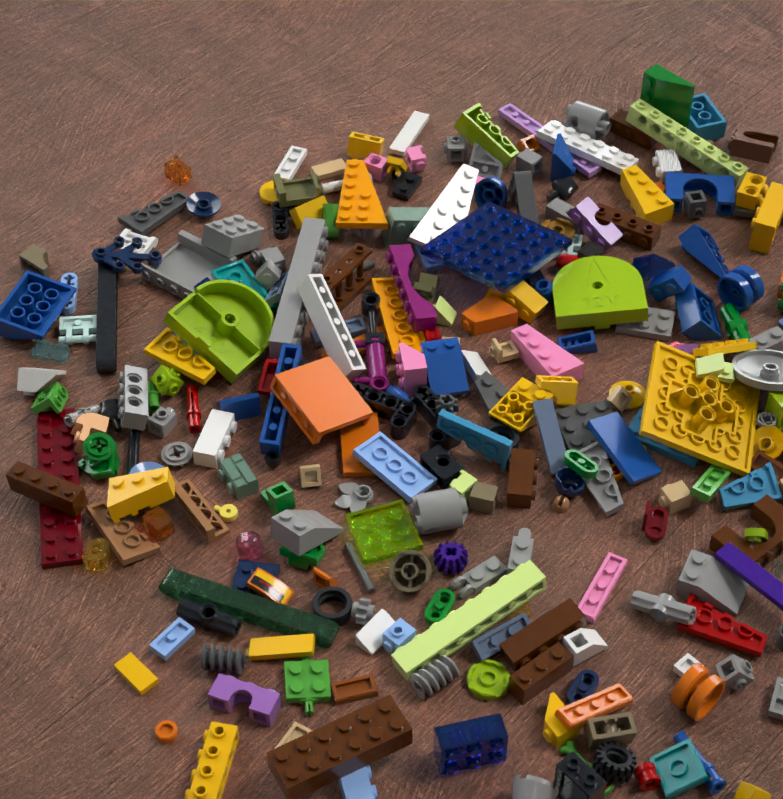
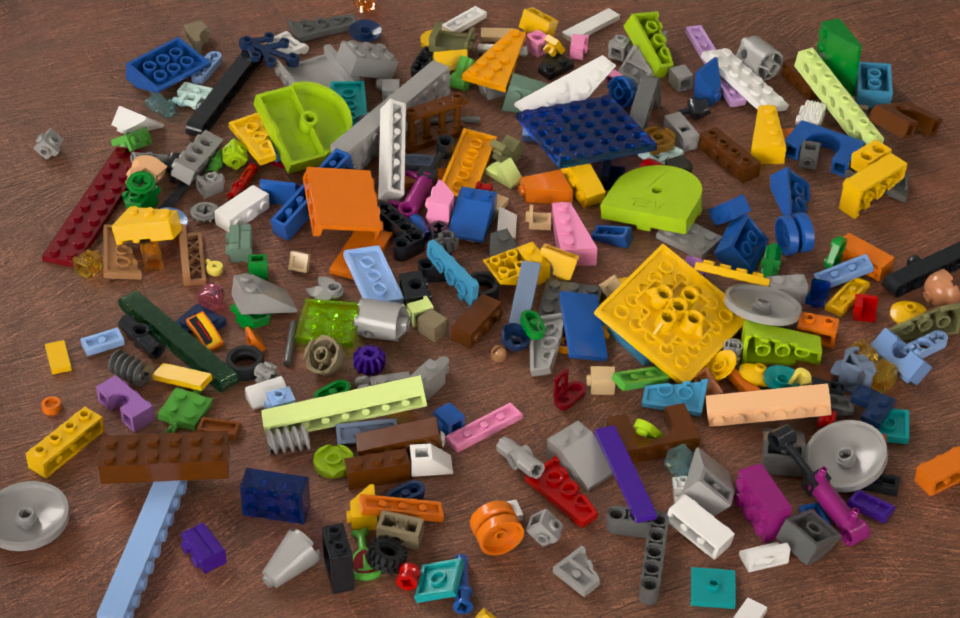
camera: 25 degrees right, 5 degrees down
(47, 489) = (79, 200): reddish brown brick -> none
(268, 274) = (375, 97): light grey brick -> none
(272, 459) = (278, 240): black hinge -> none
(419, 311) = (483, 162): magenta arch -> none
(529, 142) = (694, 63): orange slope -> none
(545, 288) = (607, 180): blue cone -> none
(566, 589) = (449, 418): none -> blue brick
(584, 217) = (701, 156): arch -> none
(651, 265) = (720, 191): clear blue slope -> none
(715, 366) = (706, 285): yellowish green slope -> none

